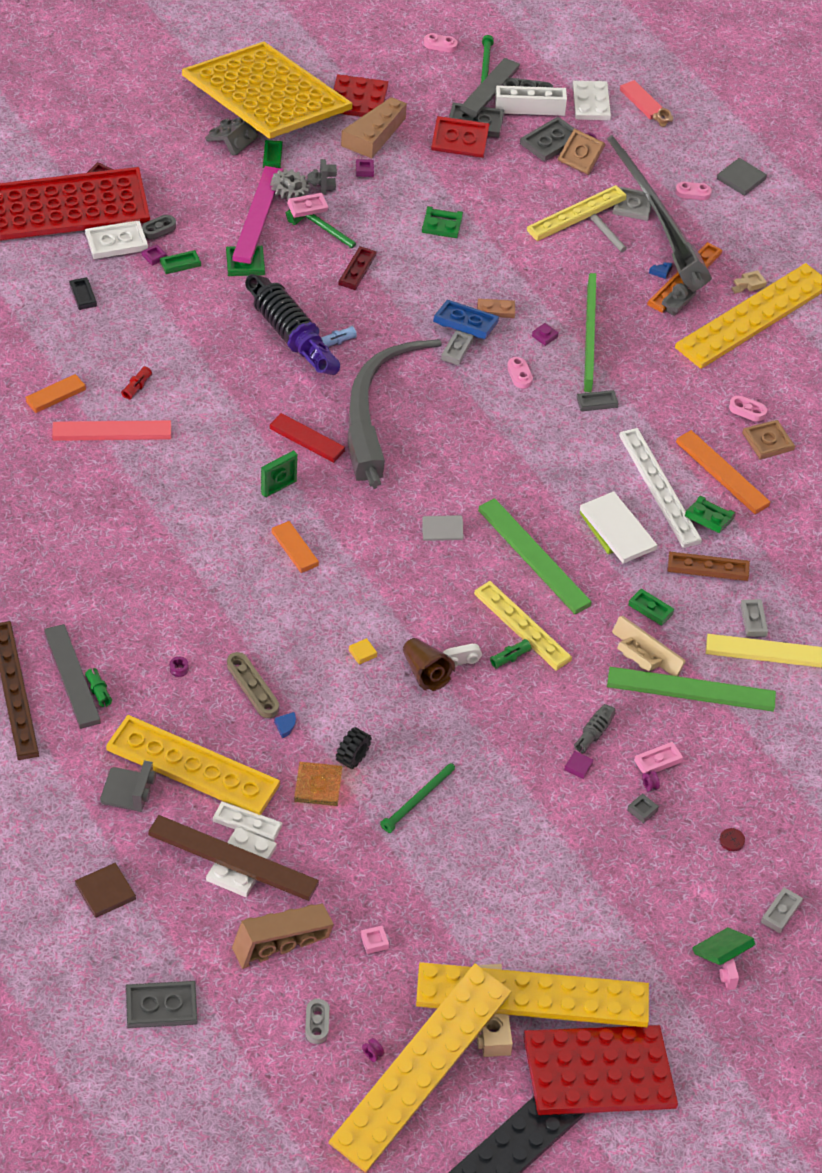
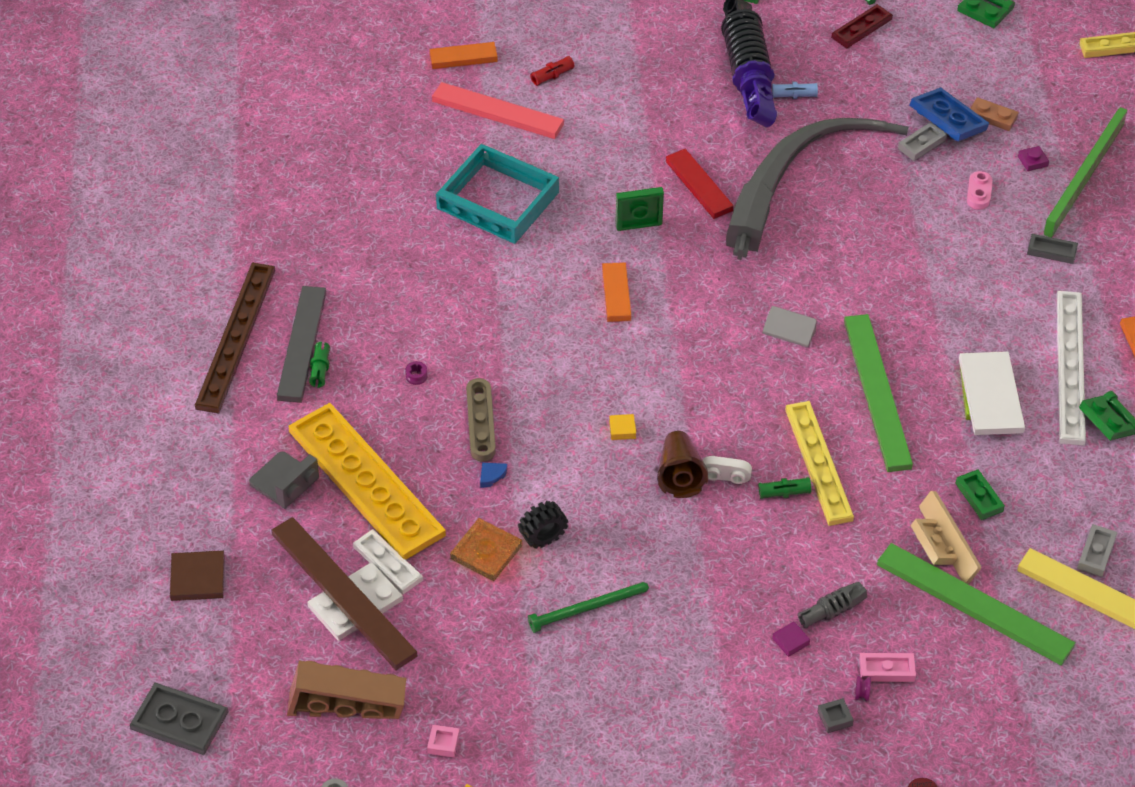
camera: 30 degrees right, 0 degrees up
(155, 522) = (483, 218): none -> teal window
(708, 566) = (1076, 473): dark orange plate -> none

